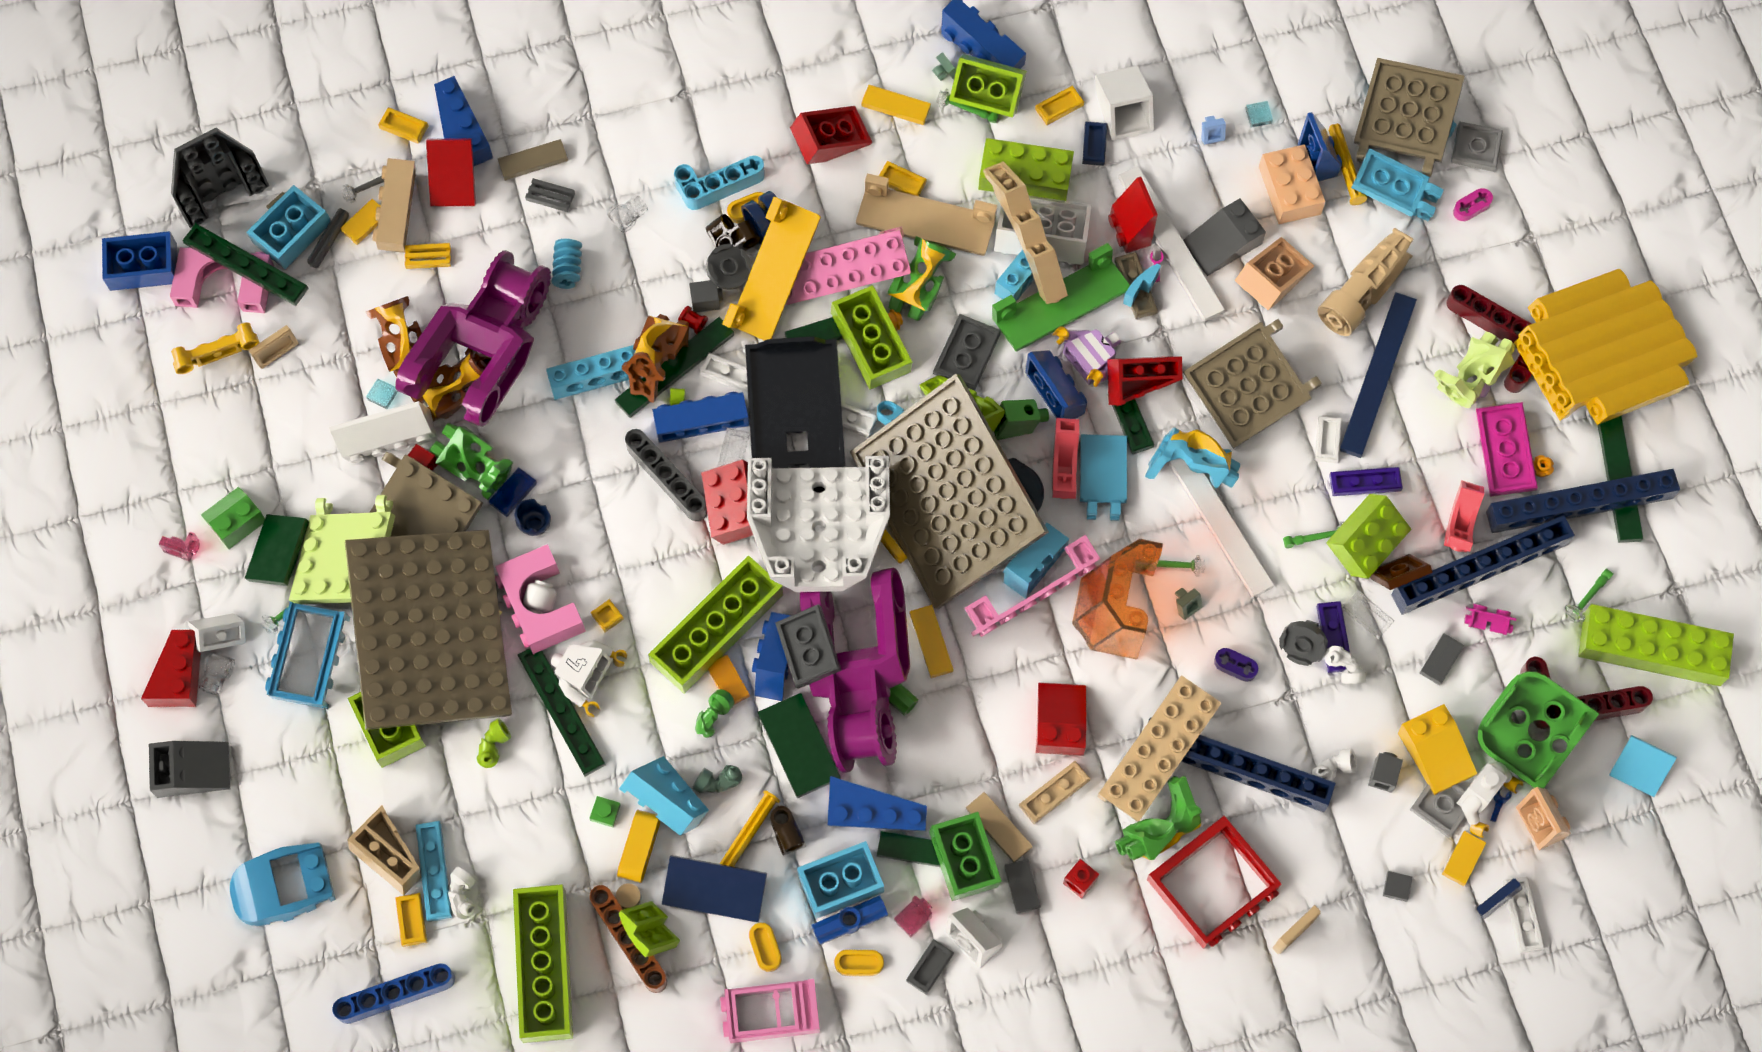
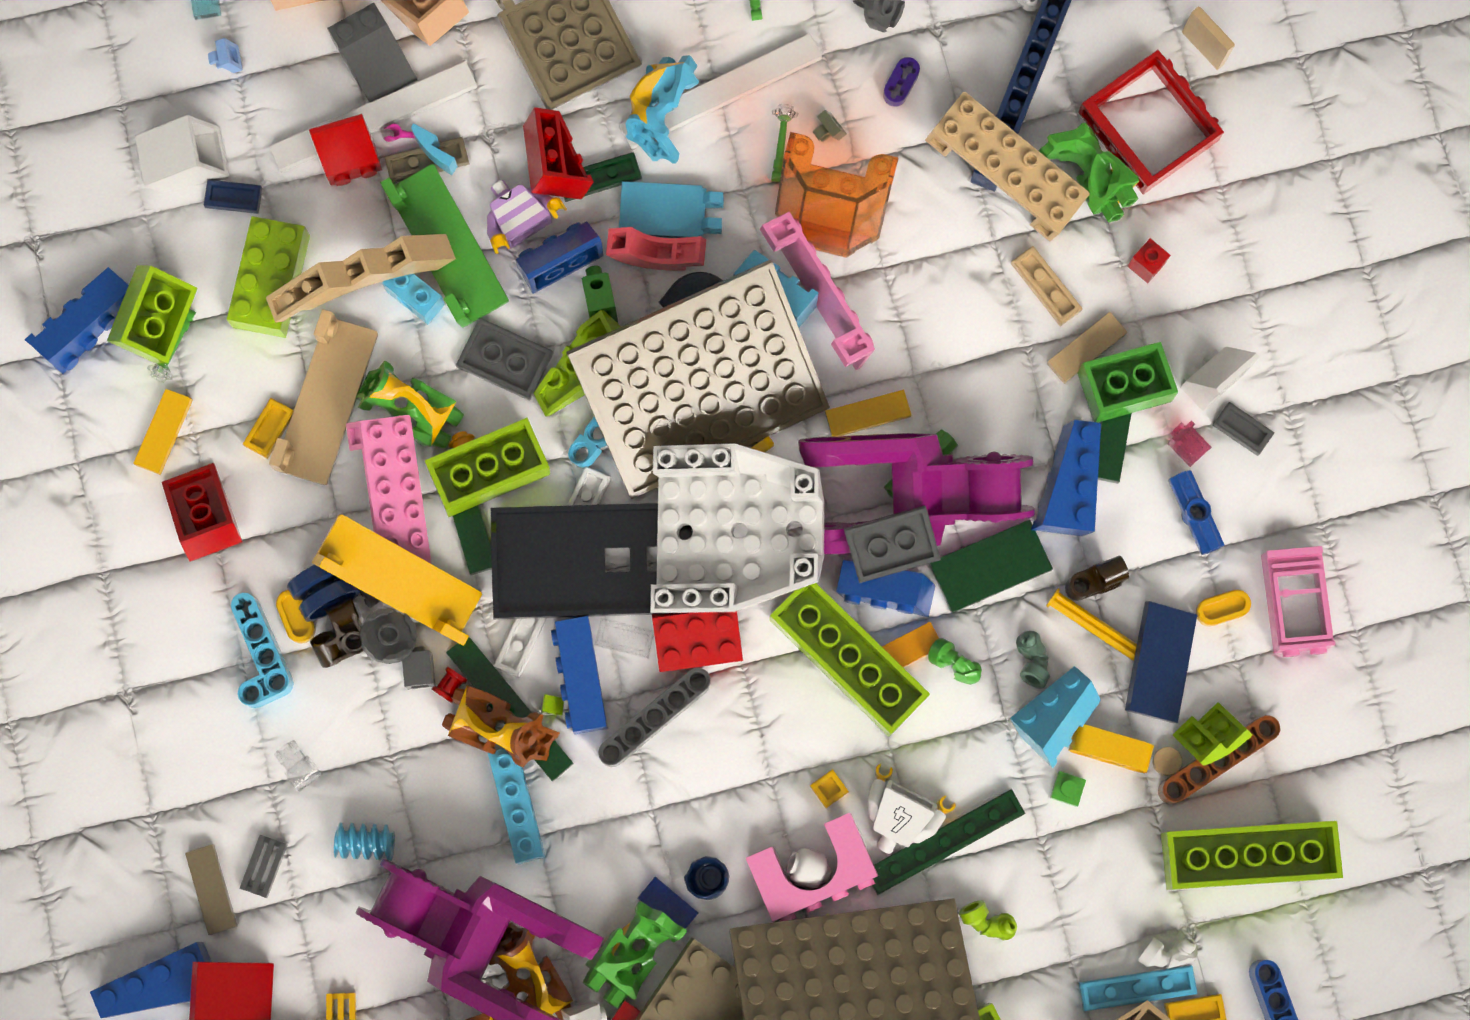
camera: 90 degrees left, 10 degrees up
(840, 880) = (1154, 519): medium azure brick -> none
(859, 962) = (1239, 505): yellow tile -> none
(944, 68) = (117, 367): sand green tile -> none
(1022, 886) = (1153, 325): dark grey tile -> none
(1059, 105) = (177, 235): yellow tile -> none
(1061, 719) = (963, 272): red slope -> none
(1063, 224) = (339, 233): white slope -> none

